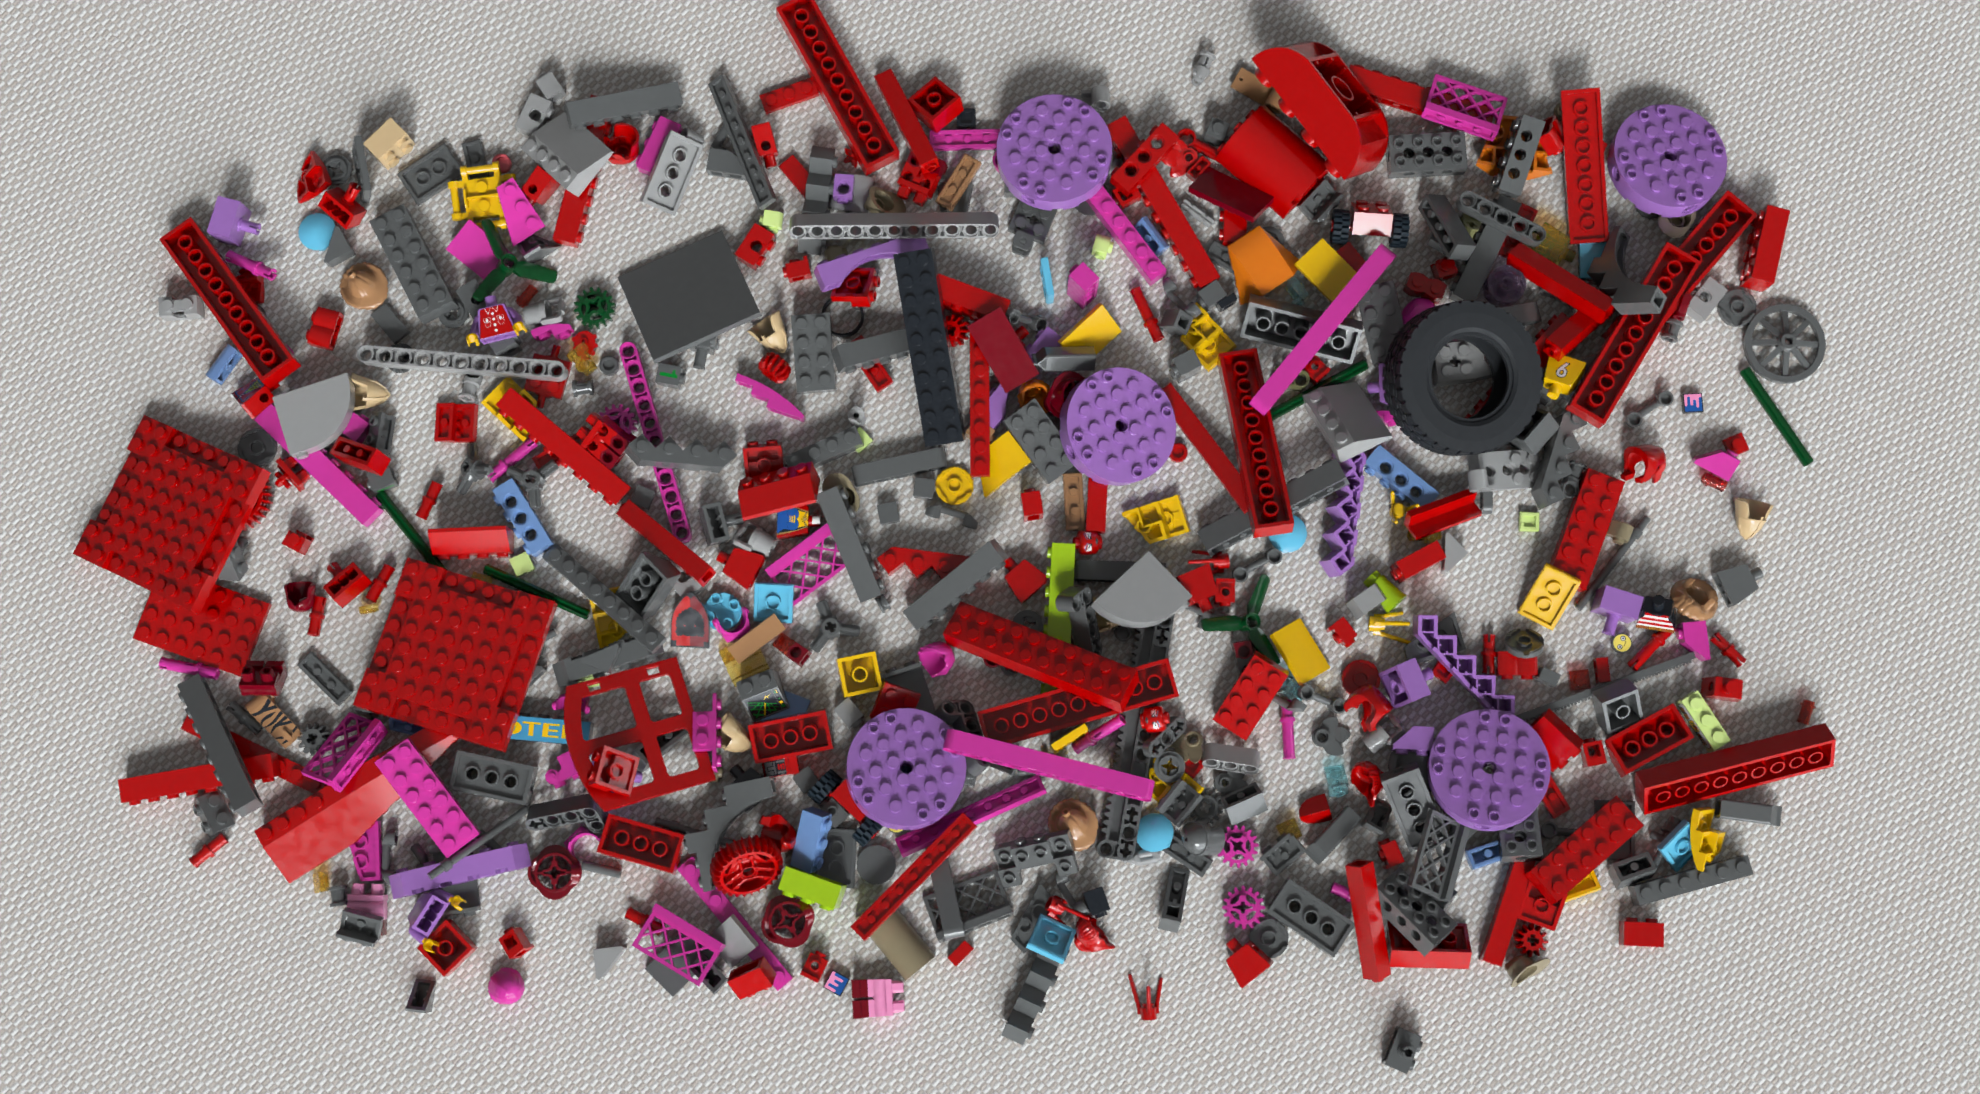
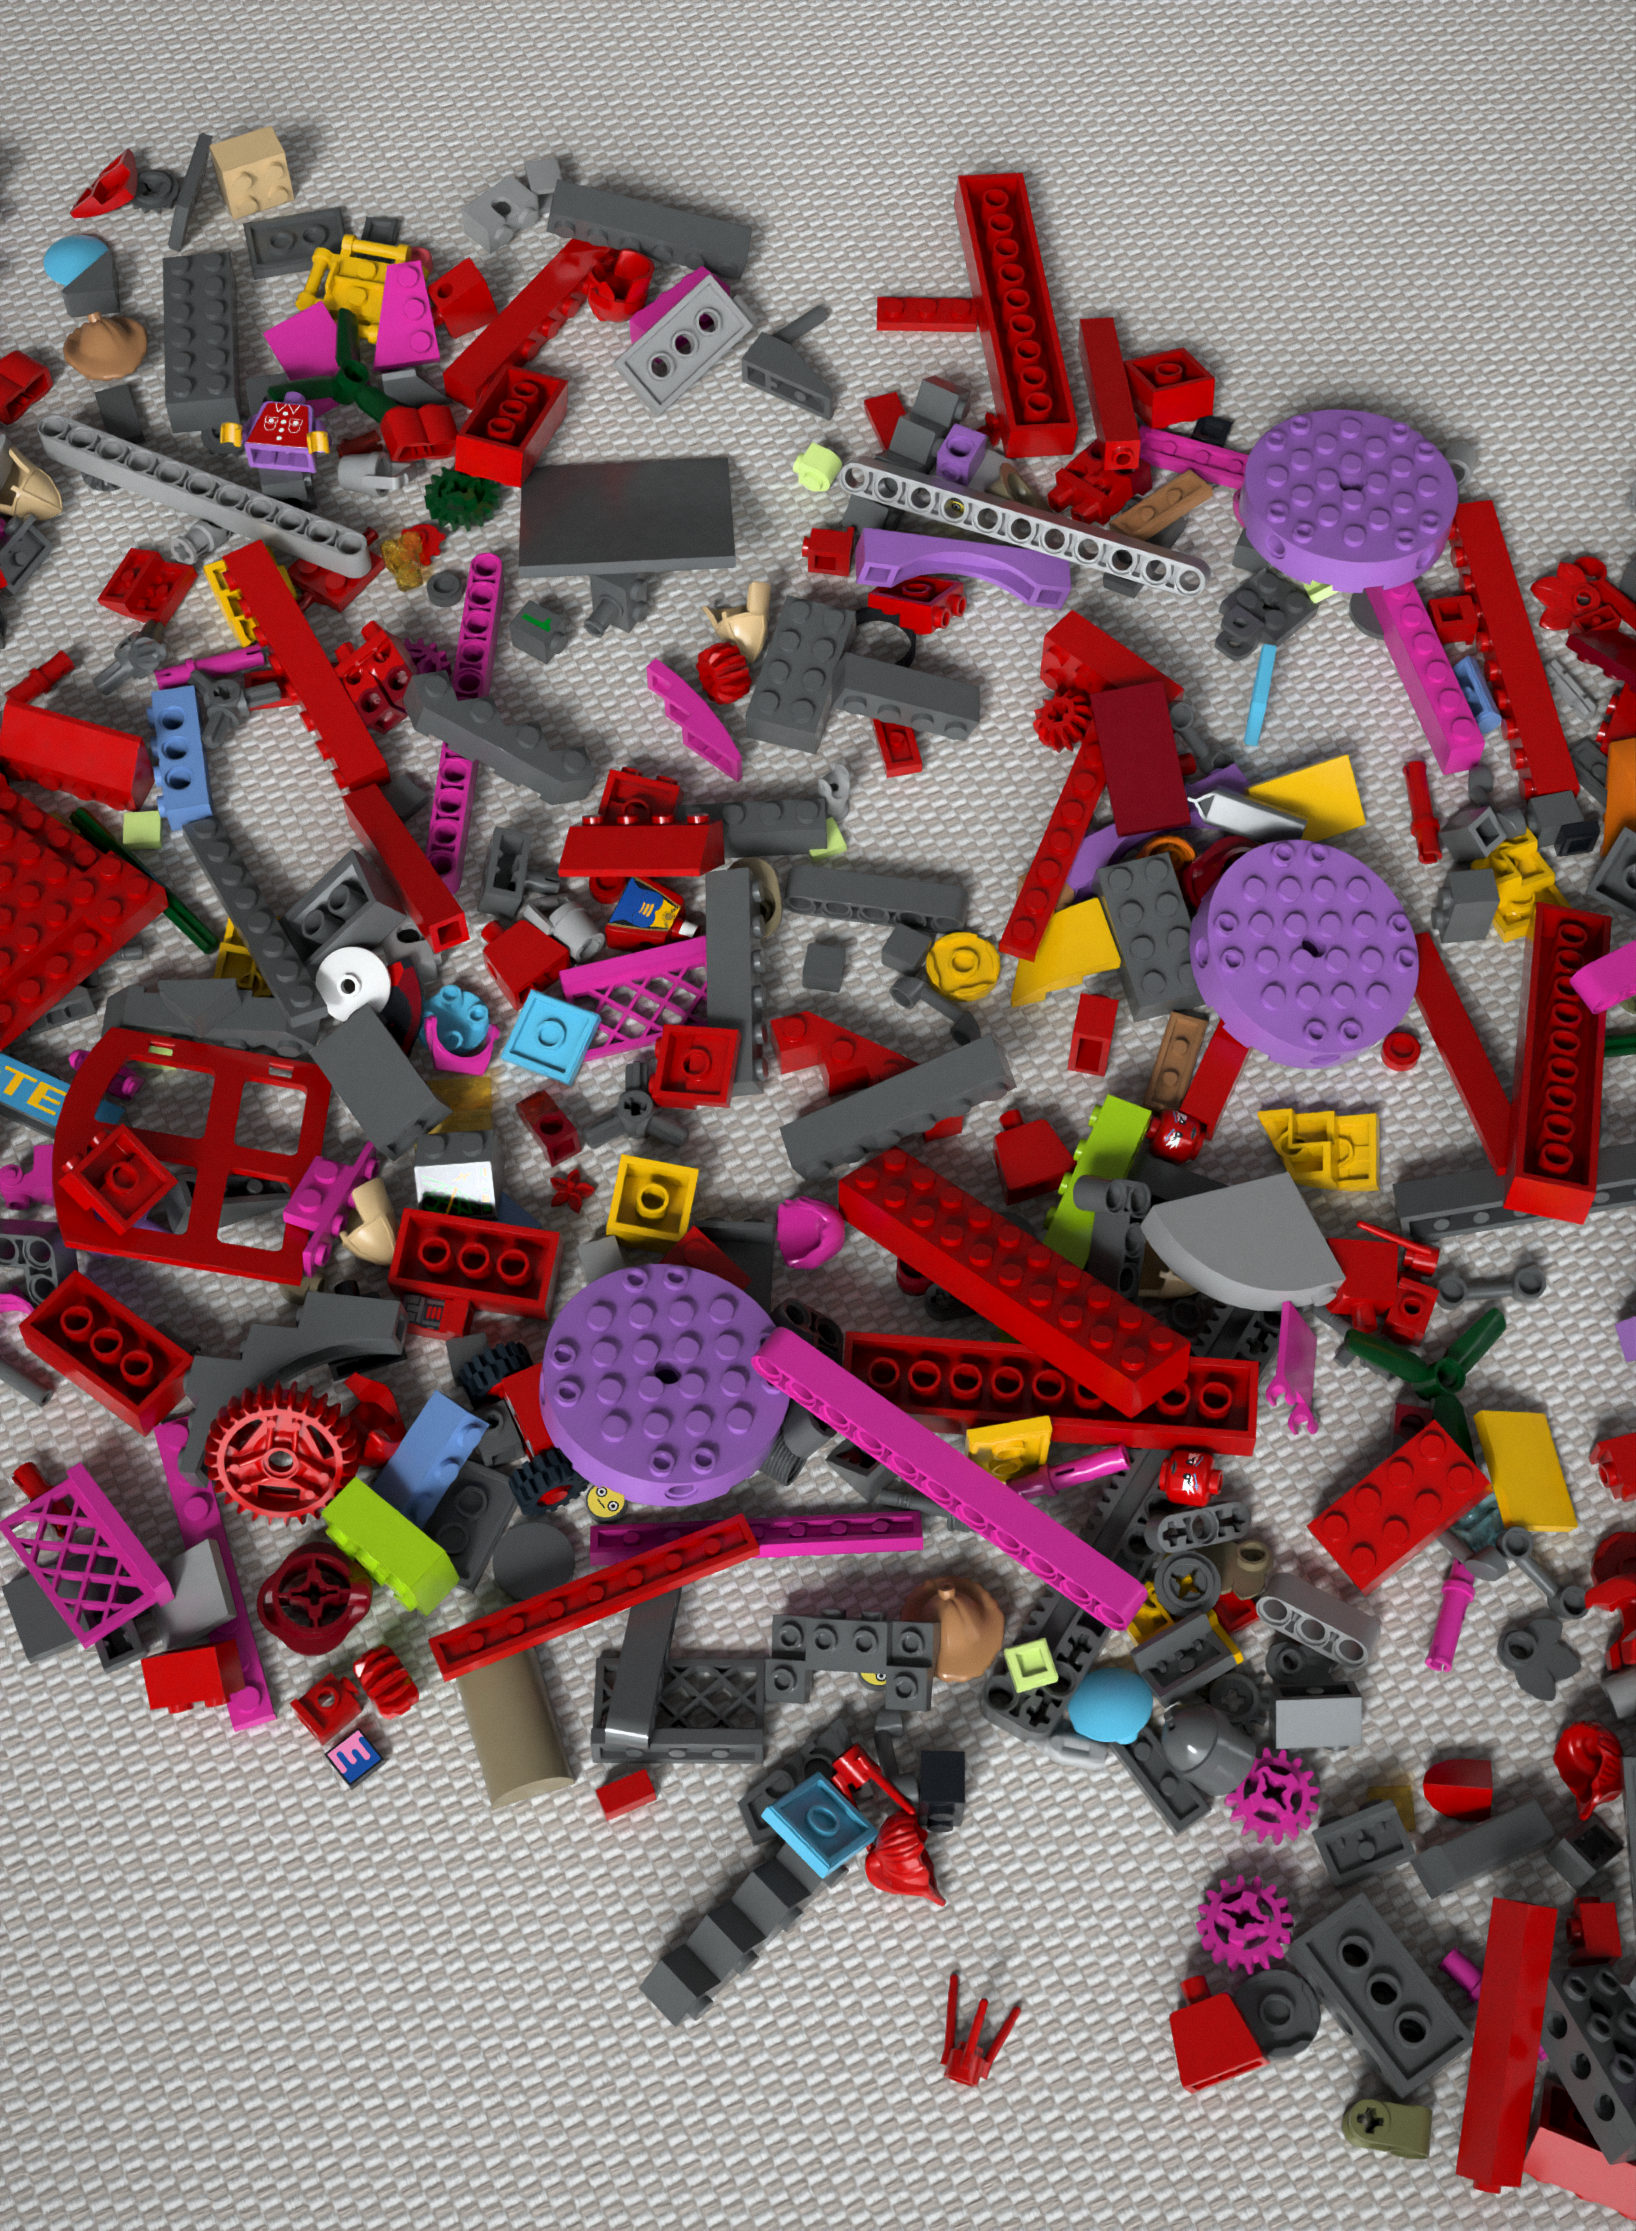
camera: 20 degrees right, 20 degrees down
(342, 205) = (135, 230): red brick -> none
(556, 279) = (419, 433): none -> red brick
(560, 331) = (364, 502): dark pink slope -> none
(567, 154) = (526, 265): light grey slope -> none
(583, 387) = (384, 602): dark grey bush -> none
(604, 260) = (511, 425): none -> red brick
(669, 608) = (367, 972): none -> white dish
(703, 661) = (379, 1082): none -> dark grey panel
(742, 142) = (819, 339): dark grey plate -> none
(756, 236) = (773, 494): red brick -> none
(756, 638) = (493, 1081): medium nougat tile -> none
(764, 136) = (857, 361): red torso -> none
(815, 677) = (570, 1191): none -> red plant
(836, 947) = (386, 1681): none -> red gear
(851, 597) = (695, 1066): none -> red plate
(882, 603) = (749, 1108): dark grey bush -> none
(882, 996) = (419, 1815): bright pink hips -> none
(929, 347) = (1009, 716): black brick -> none
(1082, 285) = (1323, 704): dark pink brick -> none
(1101, 246) = (1378, 683): yellowish green plate -> none
(1114, 831) = (1031, 1665): none -> yellowish green tile
(1127, 183) = (1504, 565): red brick -> none
(1174, 899) = (1101, 1855): dark grey slope -> none
(1182, 643) = (1295, 1369): none -> dark pink flag
(1290, 541) = (1568, 1256): medium azure dish -> none
(1334, 969) = (1397, 2129): none -> olive piece
(1336, 780) = (1522, 1747): clear light blue bracket -> none

